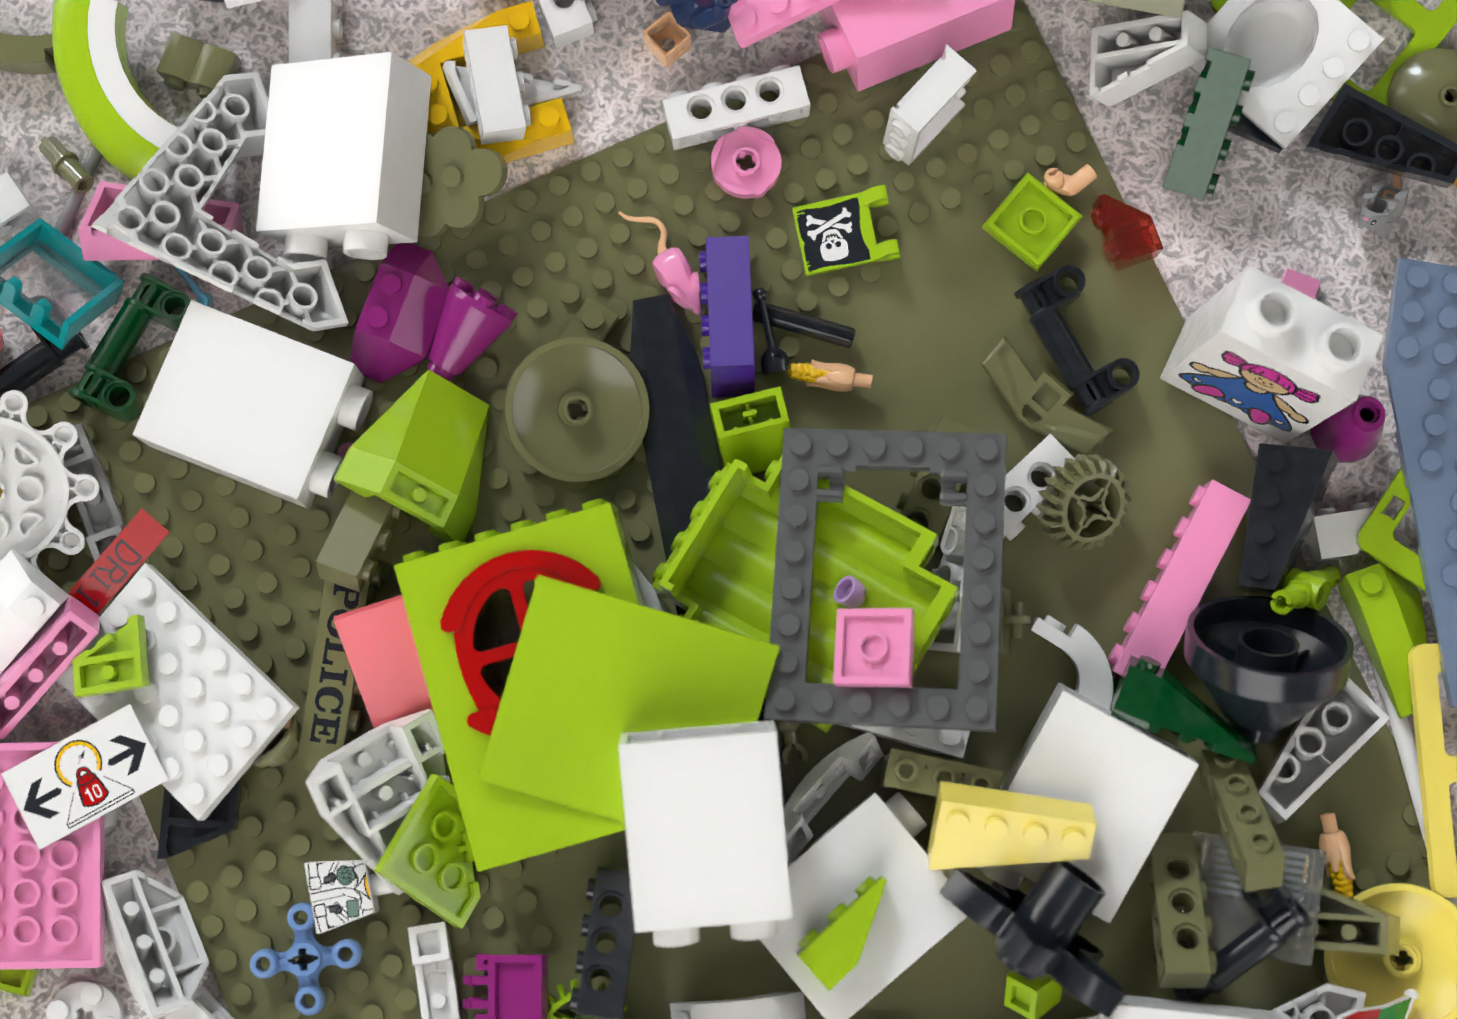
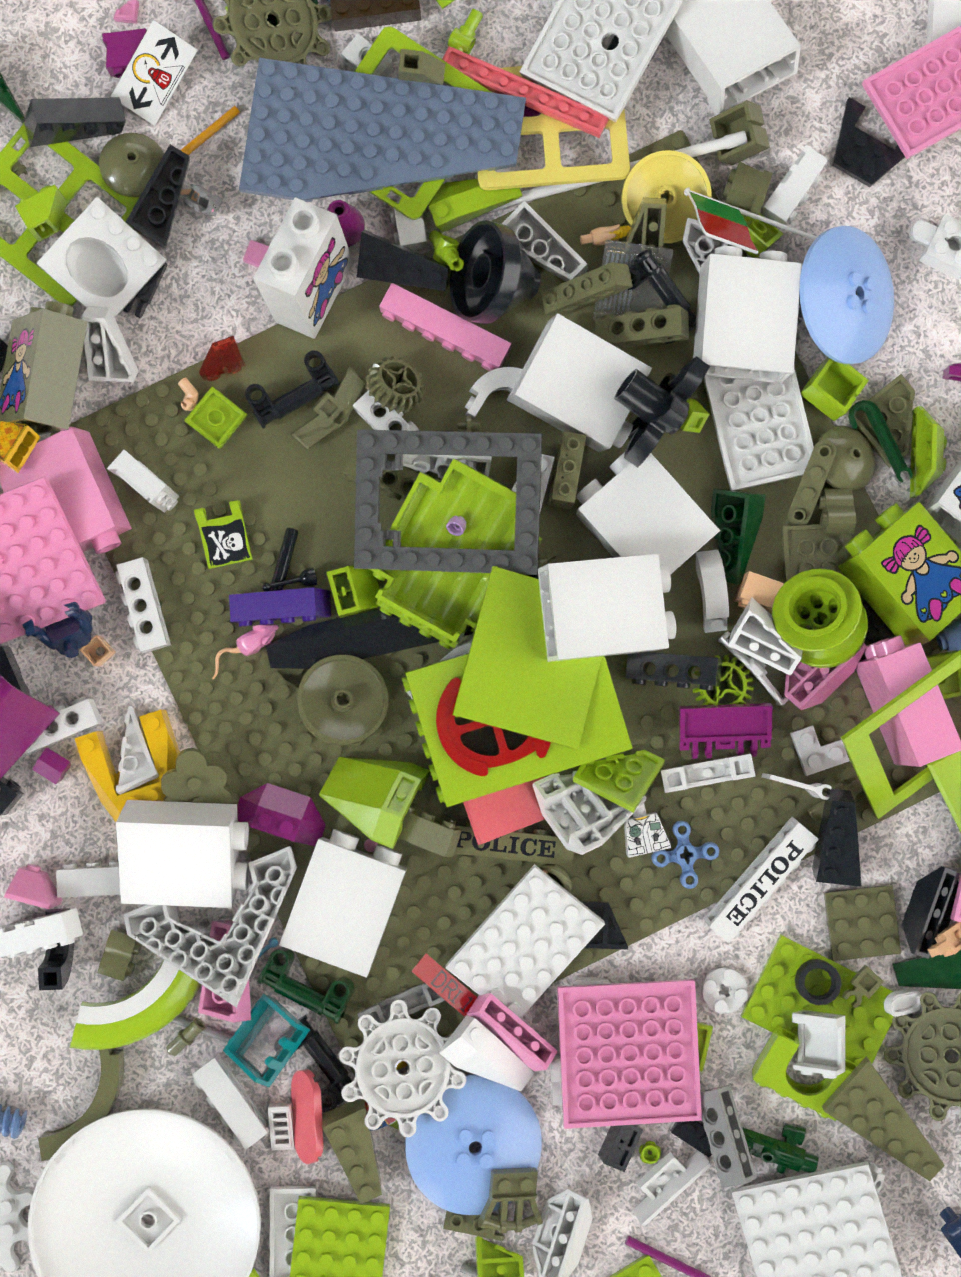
camera: 85 degrees left, 5 degrees up
(84, 776) = (580, 996): white sticker -> none
(114, 663) = (509, 982): lime wing -> none
(154, 941) = (678, 948): white wedge -> none
(466, 328) = (291, 771): magenta cone -> none
(495, 84) = (132, 758): white brick -> none
(738, 144) = (173, 587): bright pink plate -> none
(818, 786) = (556, 523): white slope -> none
(829, 376) = (317, 542): light nougat piece -> none
(840, 943) = (668, 526): lime slope -> none
(874, 647) = (493, 507): bright pink plate -> none
(1006, 828) = (598, 430): light yellow wedge -> none
(1157, 700) = (518, 339): dark green wedge -> none
(1208, 123) = (152, 307): wedge -> none

